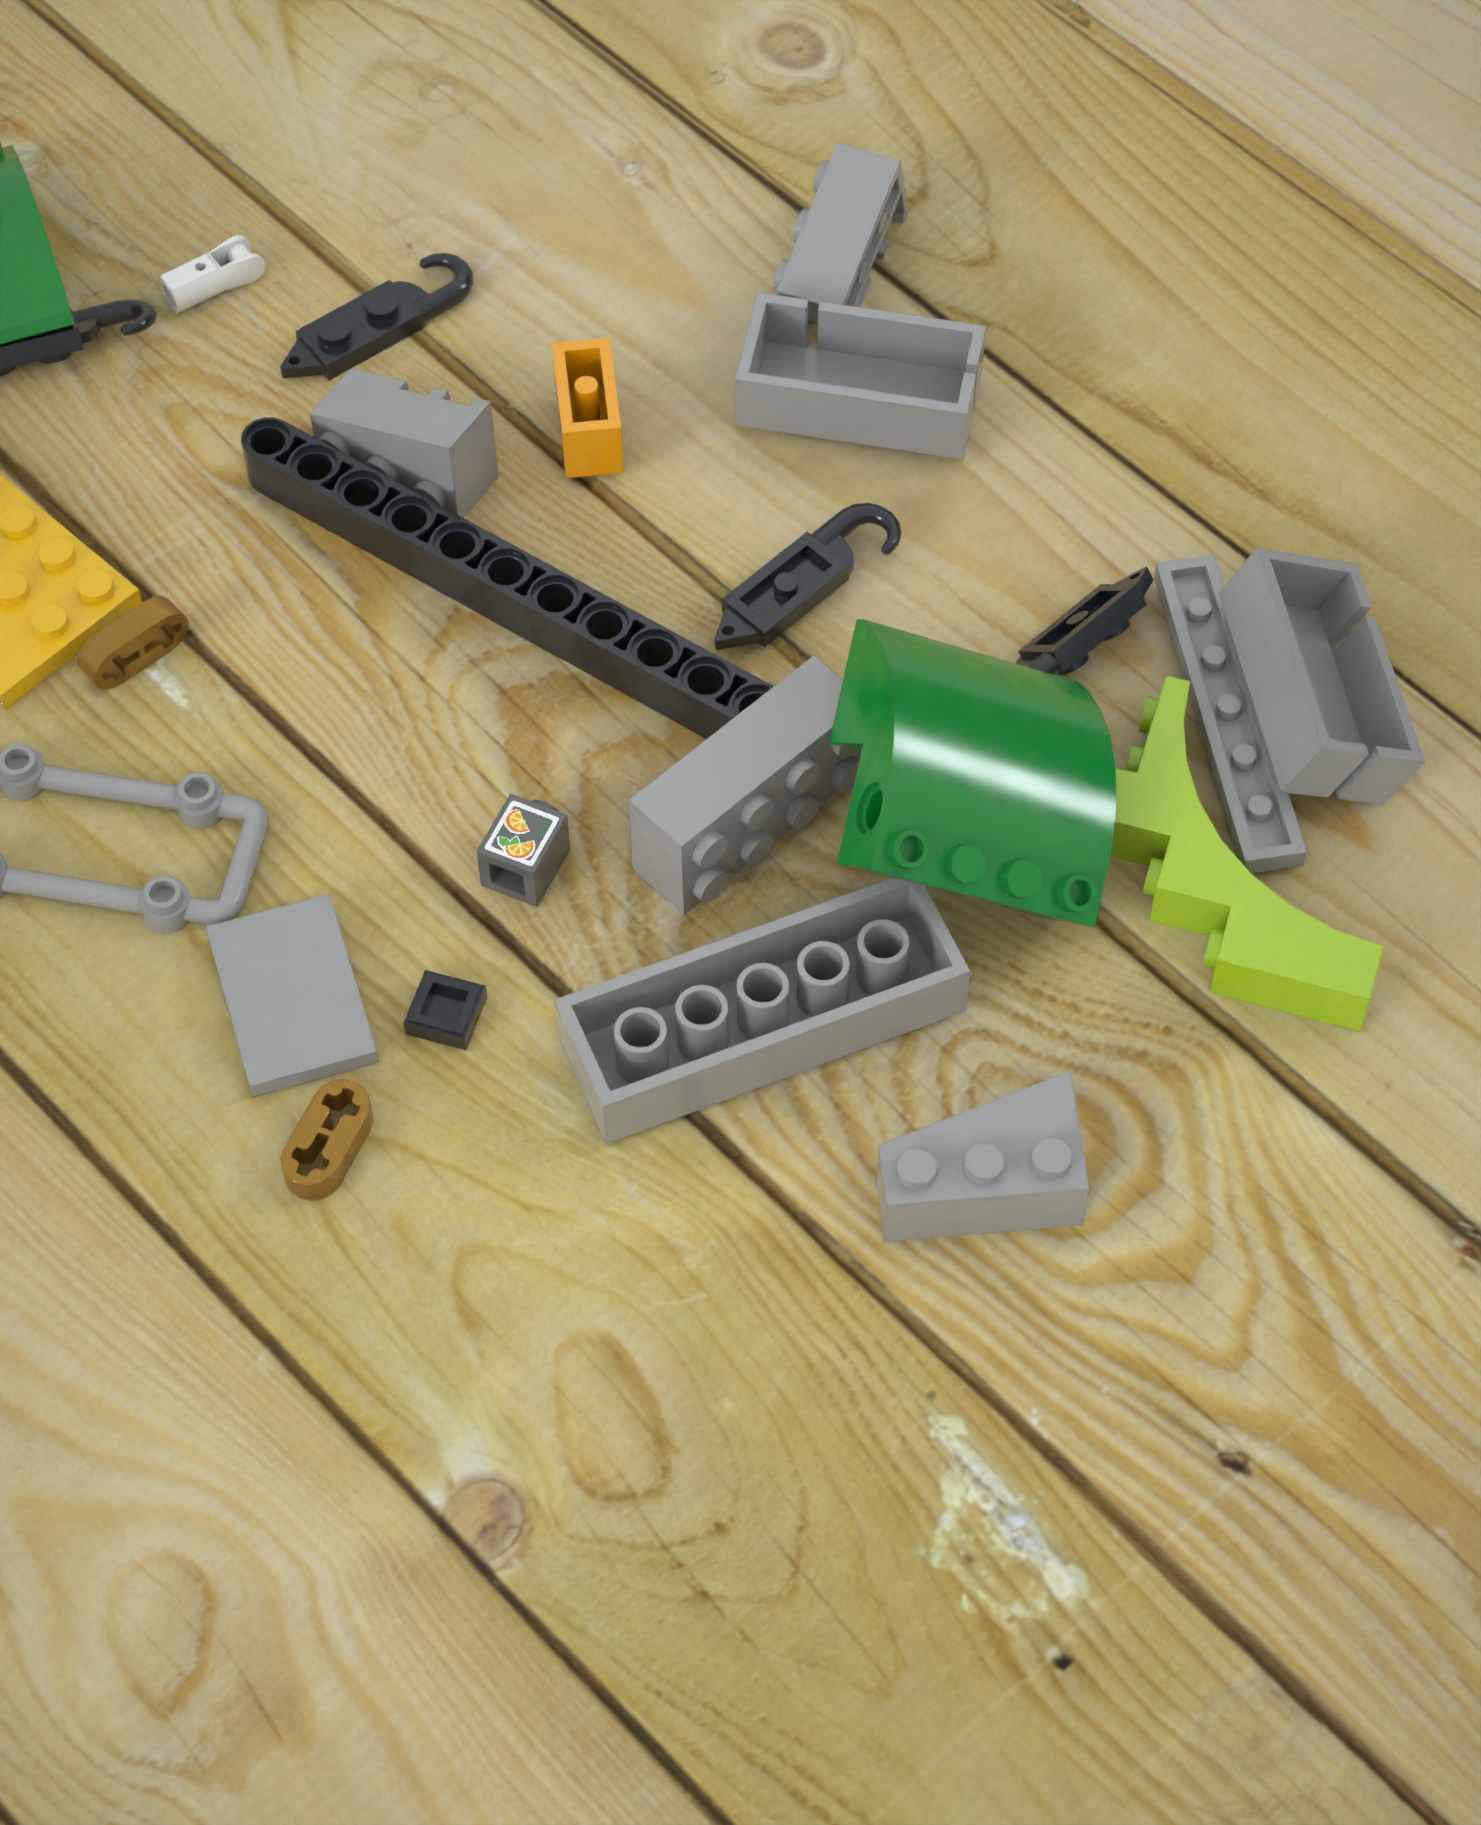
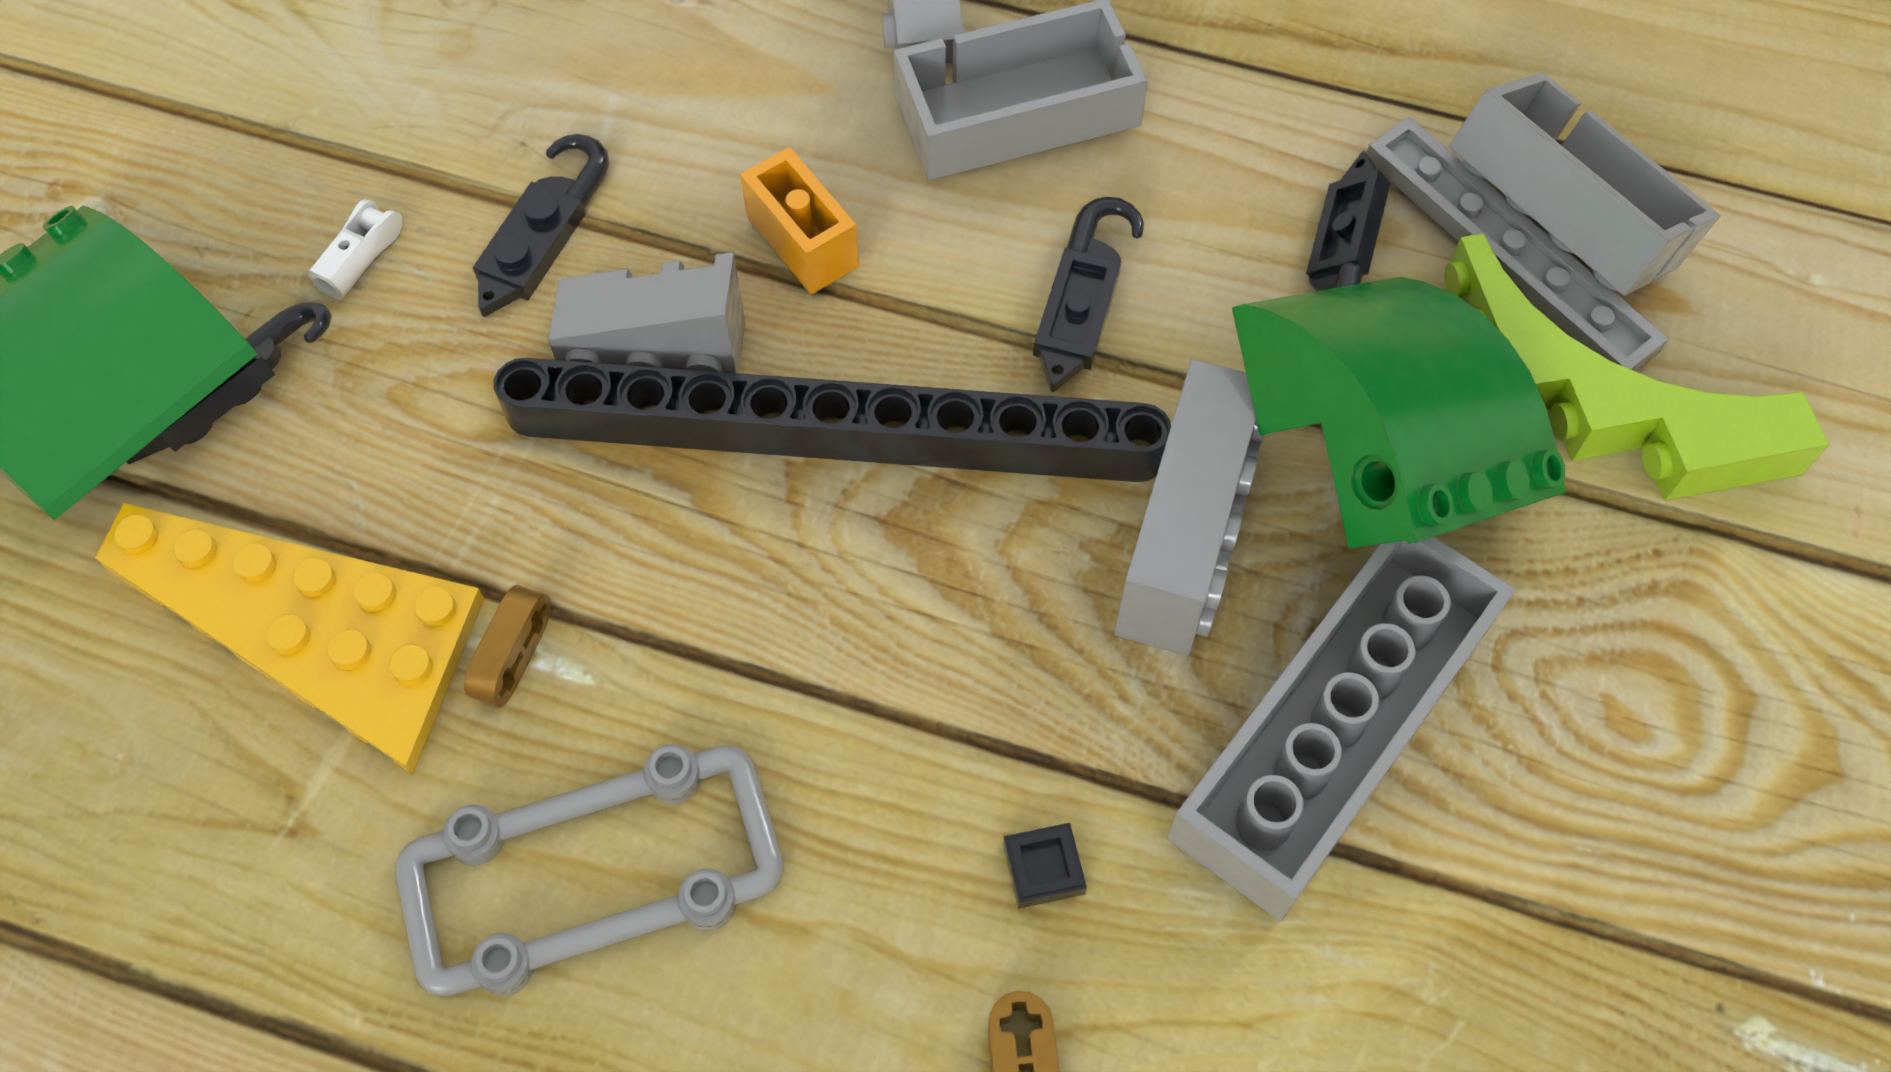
camera: 30 degrees left, 5 degrees up
(291, 995) = (890, 929): light grey tile -> none
(524, 849) = (1019, 667): dark grey brick -> none
(988, 1168) = (1638, 762): light grey wedge -> none

